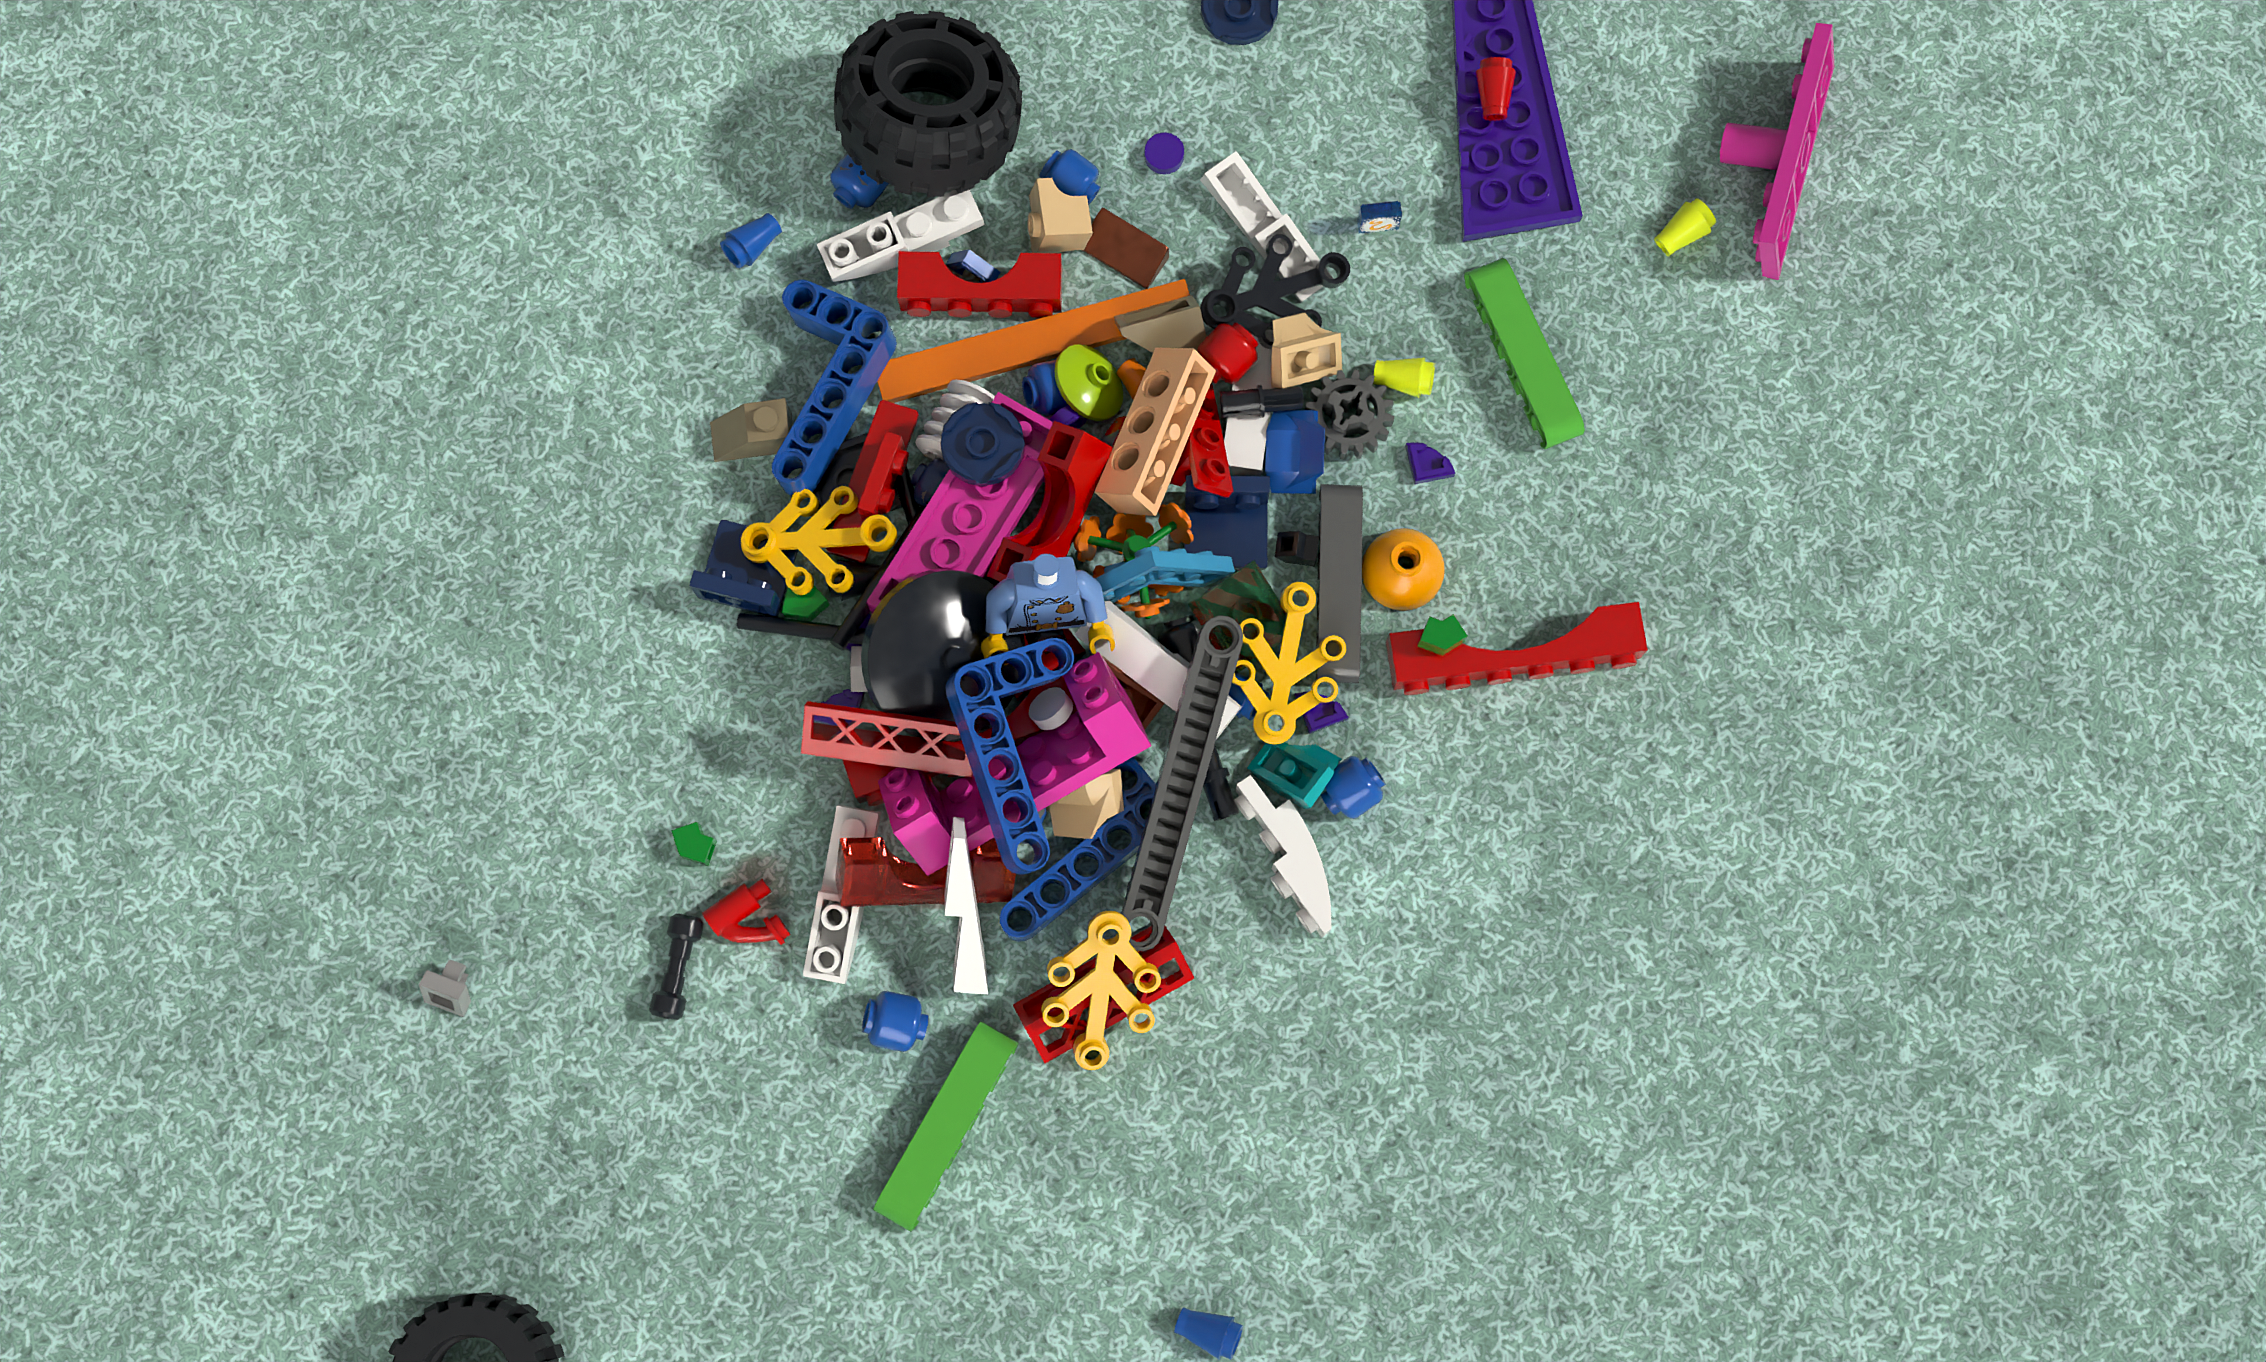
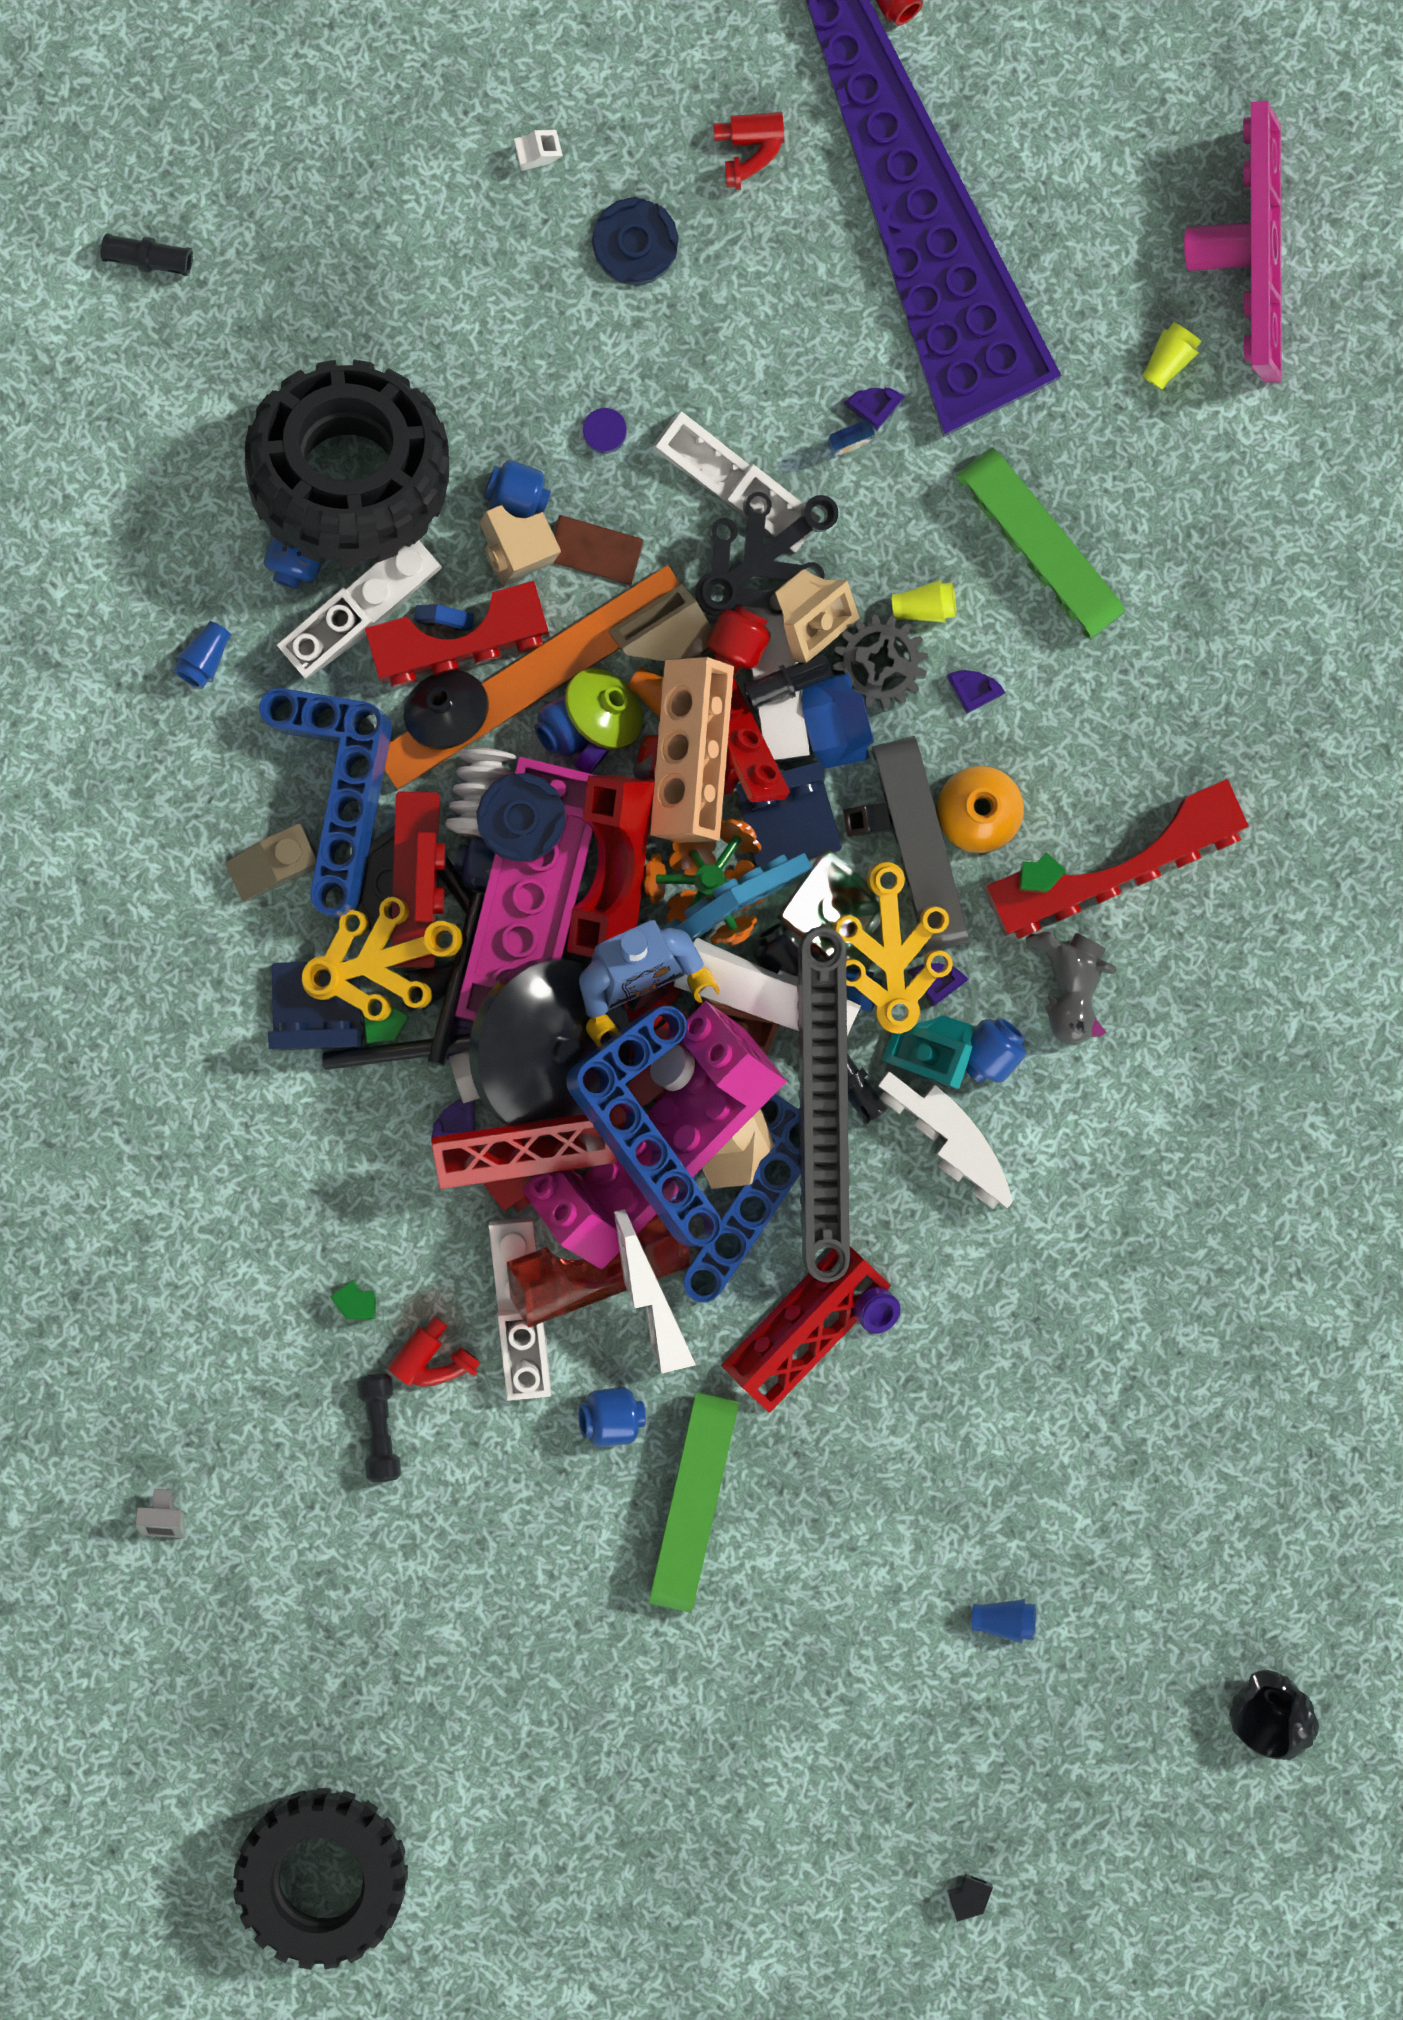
camera: 20 degrees left, 10 degrees up
(948, 345) = (454, 720): none -> black dish
(1100, 983) = (803, 1326): yellow plant -> none
(1175, 996) = (877, 1310): none -> dark purple tile
(1412, 197) = (874, 404): none -> dark purple tile
(1451, 739) = (1077, 972): none -> dark grey animal
(1495, 86) = (933, 263): red cone -> none

